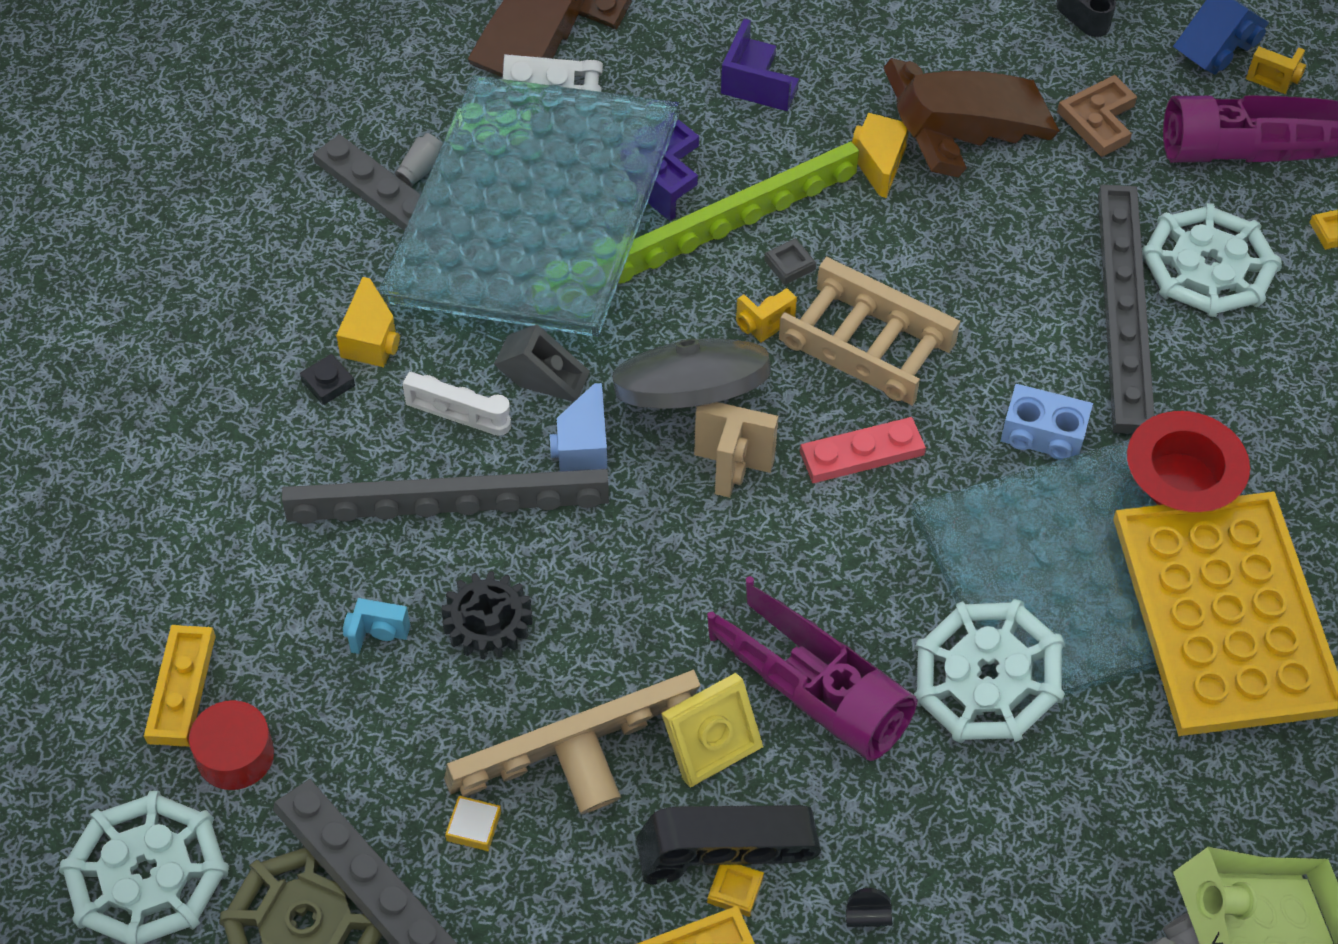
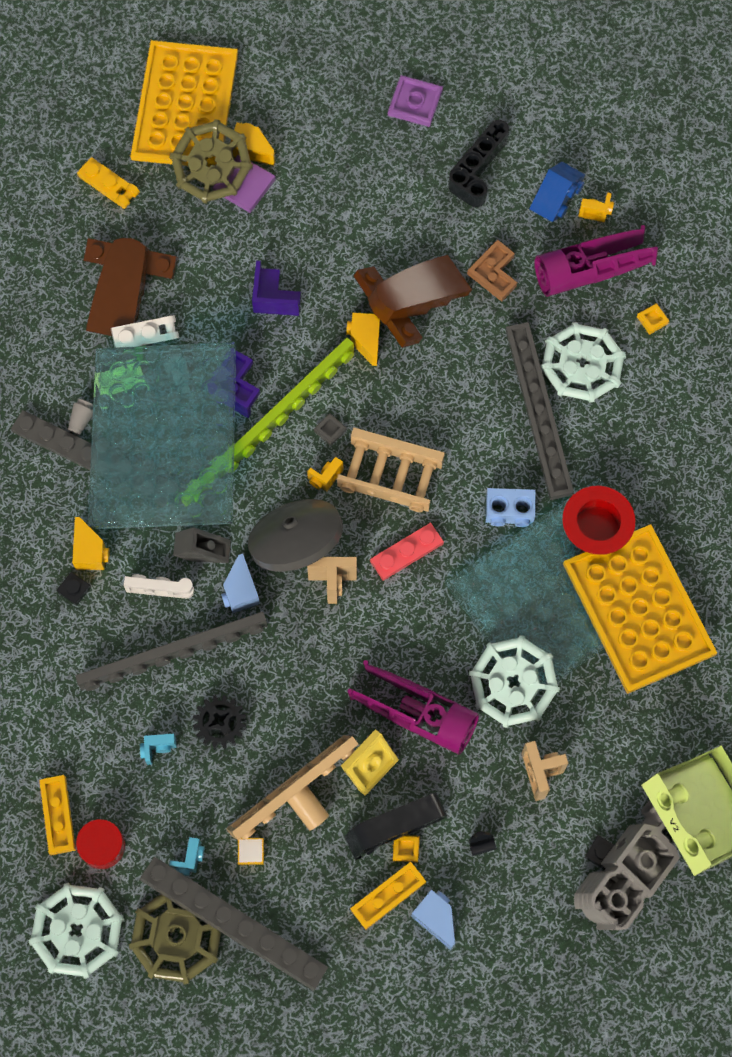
camera: 15 degrees left, 15 degrees up
(375, 801) = (194, 853): none -> medium azure bracket
(1005, 812) = (540, 769): none -> tan bracket

